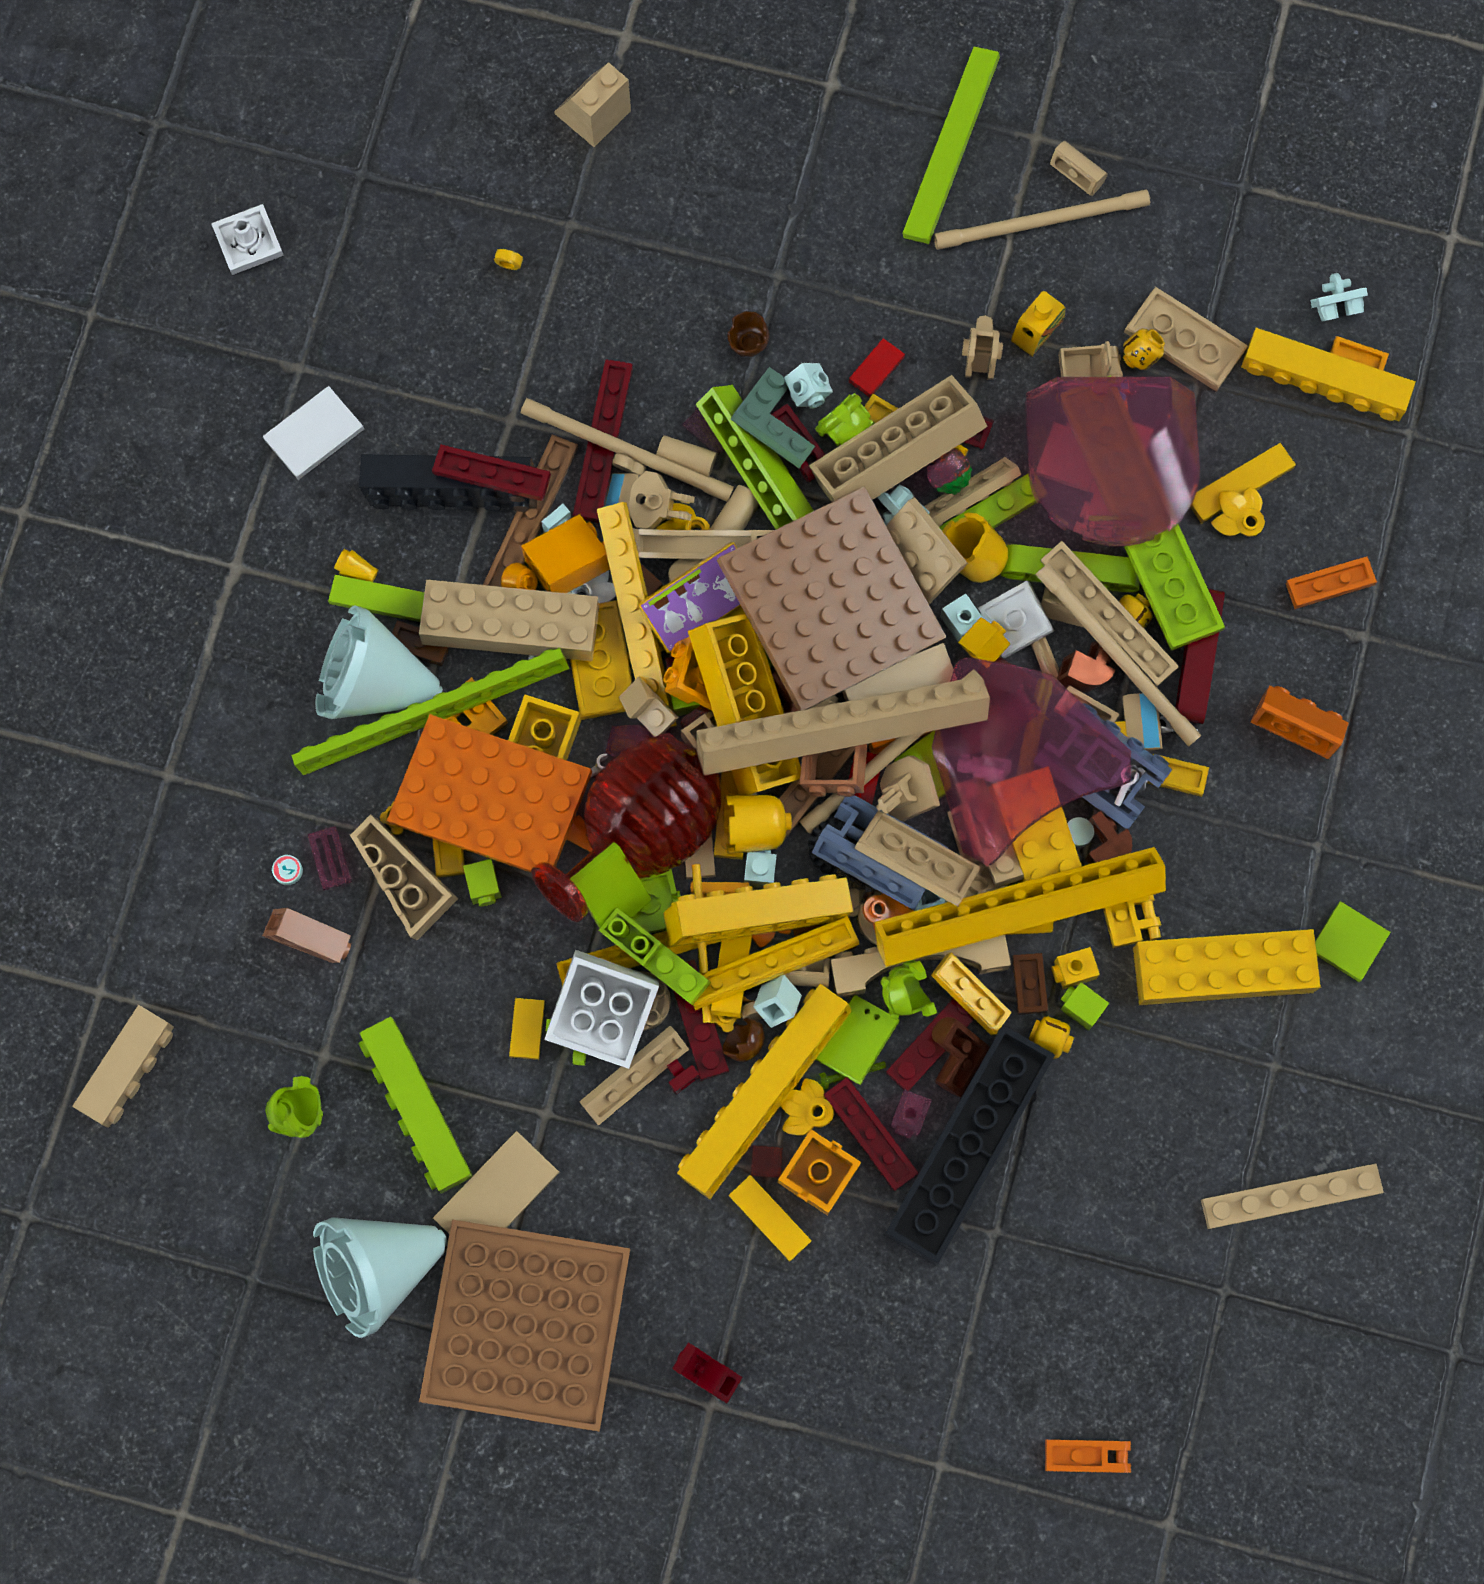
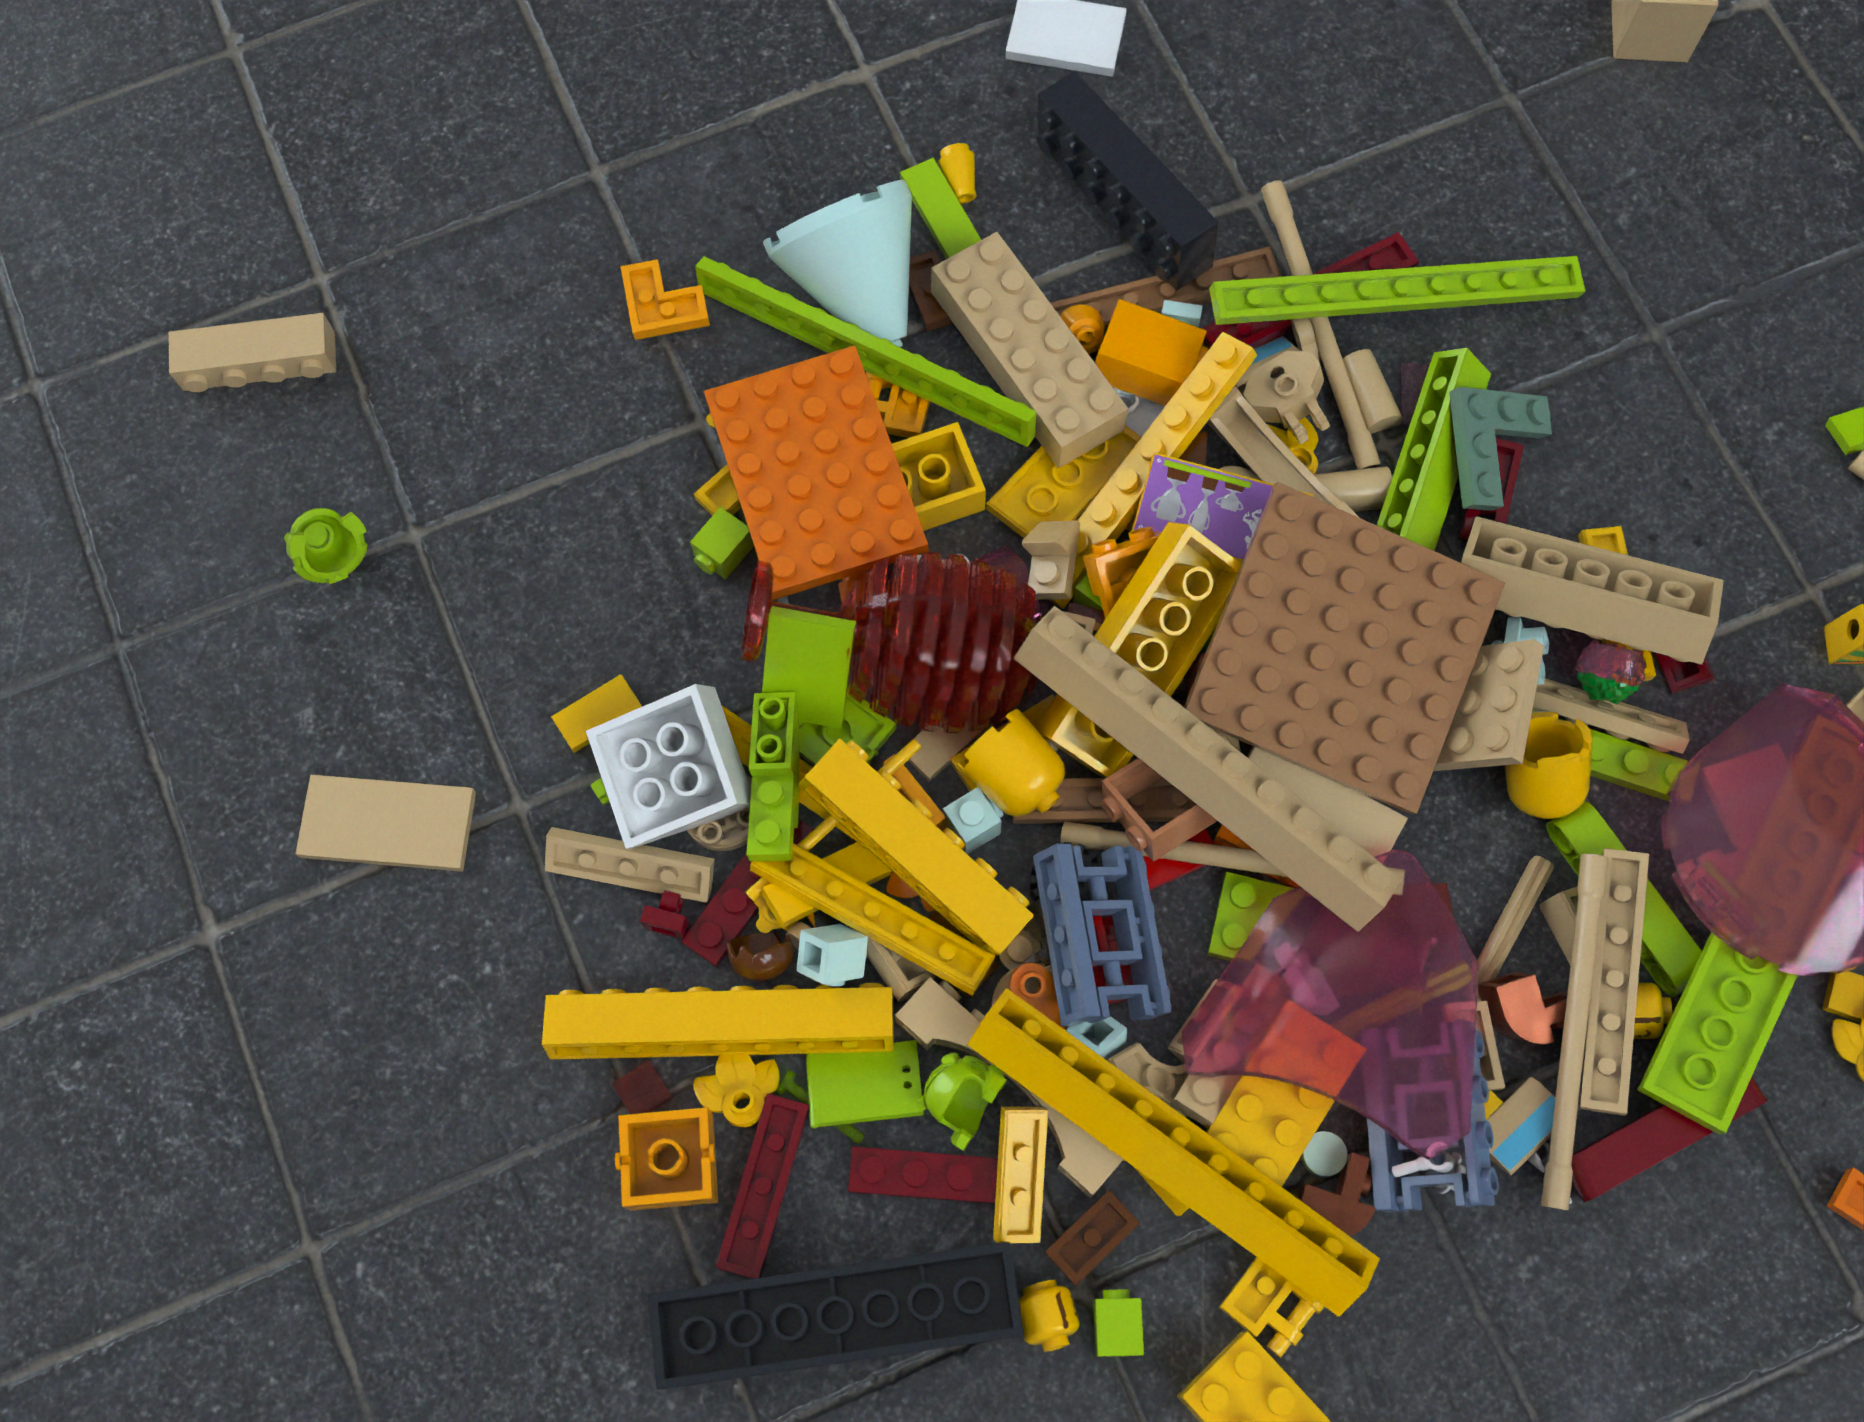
camera: 55 degrees right, 5 degrees down
(287, 870) = (584, 350): light aqua tile -> none
(296, 810) = (657, 311): none -> light orange plate
(307, 935) = (524, 417): nougat slope -> none
(336, 881) = (611, 405): clear pink tile -> none
(373, 1266) = (205, 752): light aqua cone -> none
(409, 885) = (661, 466): tan wedge -> none
(416, 1106) = (421, 663): lime brick -> none
(491, 472) = (1164, 195): dark red plate -> none
(508, 259) = (1415, 65): yellow tile -> none
(525, 1325) = (255, 966): medium nougat plate -> none
(643, 393) = (1395, 290): none -> lime plate
(707, 1372) = (339, 1210): dark red brick -> none
(748, 334) = (1562, 348): reddish brown hair -> none
(769, 1218) = (577, 1145): yellow tile -> none
(808, 385) = (1565, 449): light aqua brick -> none
(845, 420) = (1563, 513): lime helmet -> none
(876, 367) = (1654, 508): red tile -> none
(907, 789) = (1199, 910): tan piece -> none
(910, 1114) = (821, 1215): clear pink brick -> none
(917, 858) = (1125, 981): tan tile -> none
(960, 616) = (1456, 821): light aqua brick -> none
(965, 1054) = (945, 1223): copper brick -> none
(982, 348) = (1784, 597): tan hinge -> none
(985, 640) = (1452, 862): yellow brick -> none
(1019, 615) = (1510, 880): white tile -> none
(1075, 968) = (1154, 1279): yellow brick -> none
(1185, 777) = (1501, 1231): yellow tile -> none
(1300, 721) = (1695, 1325): orange slope -> none

